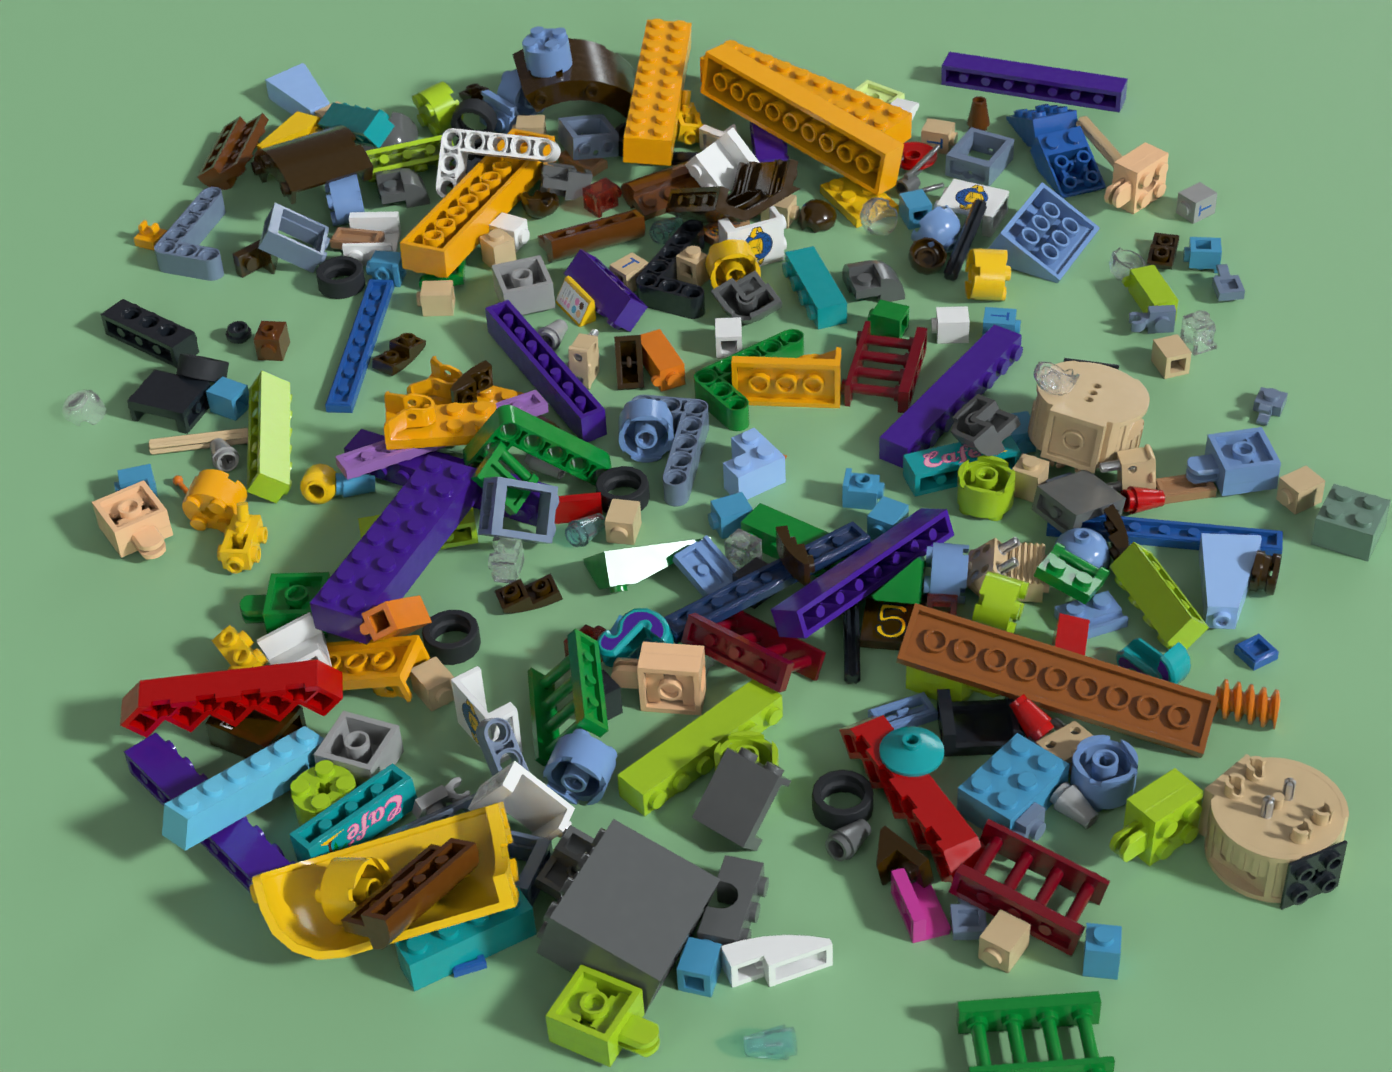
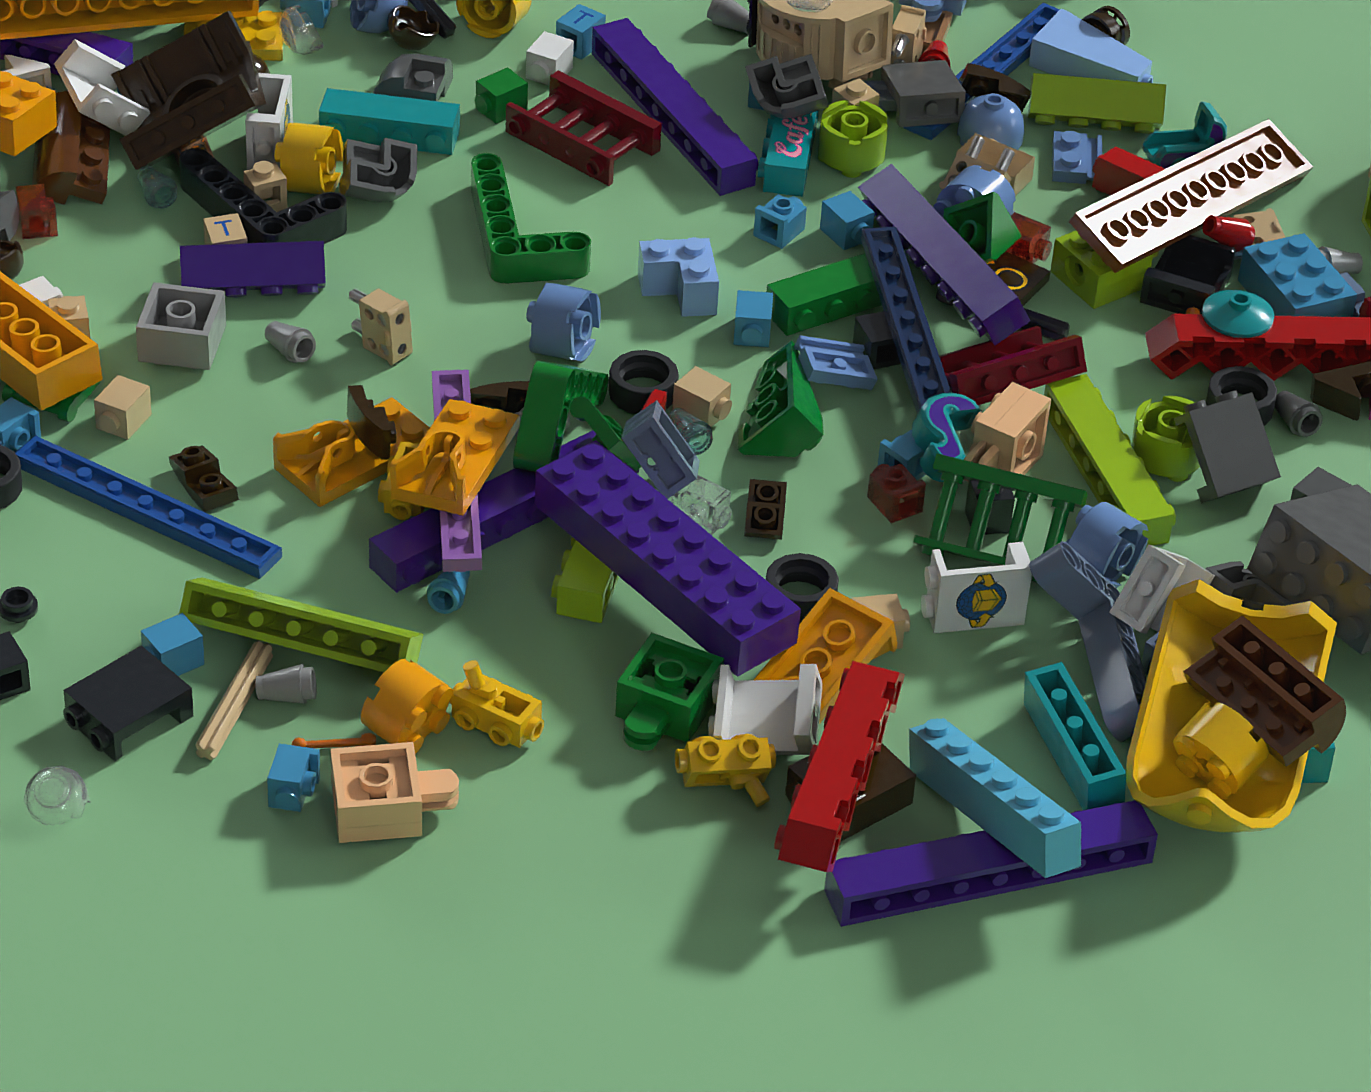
camera: 70 degrees left, 0 degrees up
(201, 367) = (98, 646): black tyre -> none
(272, 340) = (76, 575): reddish brown brick -> none
(318, 484) = (431, 612): yellow head -> none
(319, 789) = (1027, 746): lime brick -> none
(361, 745) = (970, 698): light grey brick -> none
(395, 618) = (807, 587): orange brick -> none
(438, 798) = (1075, 665): light grey plate -> none
(546, 371) = (367, 359): dark purple brick -> none
(576, 303) = (248, 300): slope -> none
(593, 235) = (113, 242): reddish brown brick -> none
(629, 362) = (425, 306): dark brown slope -> none
(662, 361) = (425, 275): orange brick -> none
(690, 432) = (622, 314): sand blue beam -> none
(728, 336) = (426, 213): white brick -> none
(742, 548) = (828, 322): clear brick -> none
(790, 382) = (571, 183): light orange plate -> none
(794, 556) = (913, 280): dark brown slope -> none
(904, 716) = (1137, 336): medium blue tile -> none
(1000, 601) = (1048, 190): lime brick -> none
(1077, 582) = (1033, 133): green plate -> none
(1104, 771) = (1318, 216): medium blue brick -> none
(1248, 703) = (1281, 105): orange piece -> none
(1256, 652) = (1192, 87): blue tile -> none

